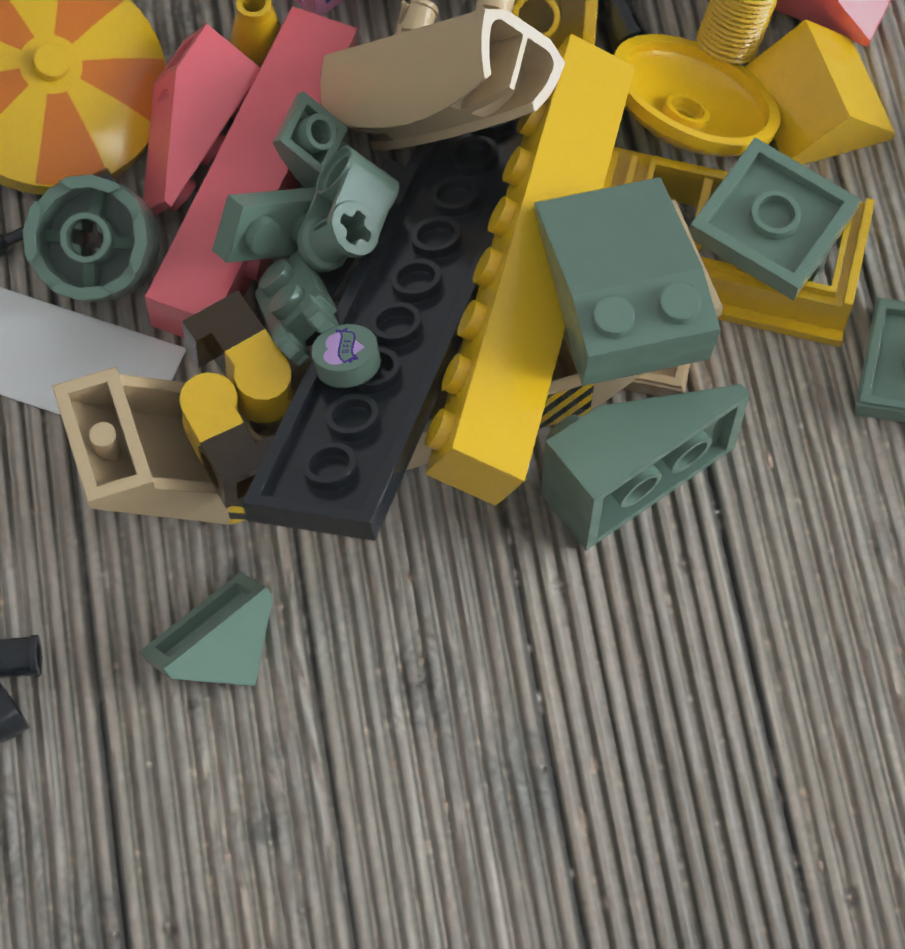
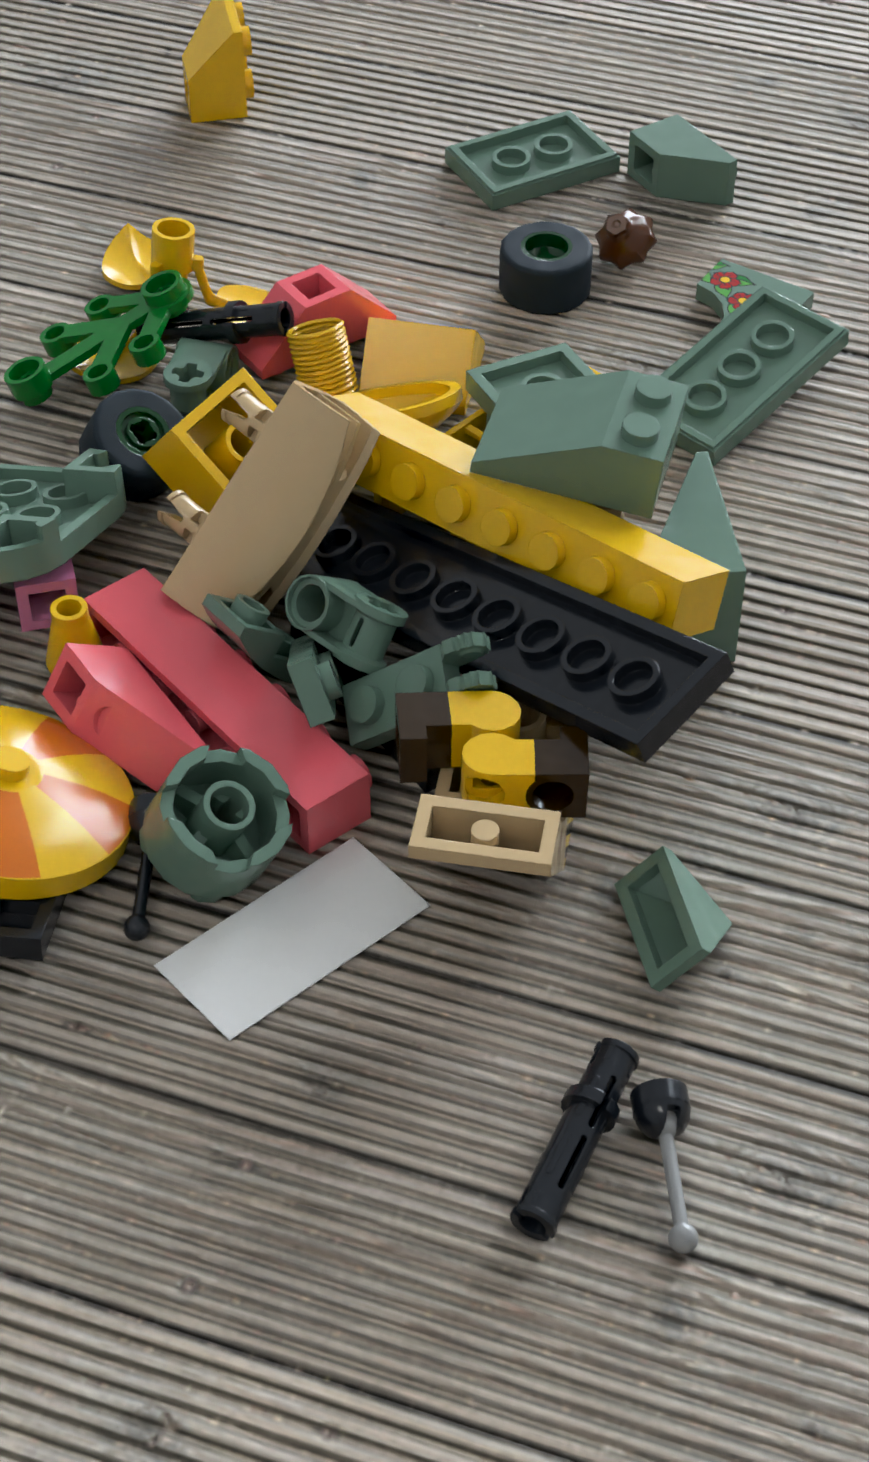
camera: 60 degrees left, 20 degrees down
(346, 355) = (522, 641): sand green tile -> none

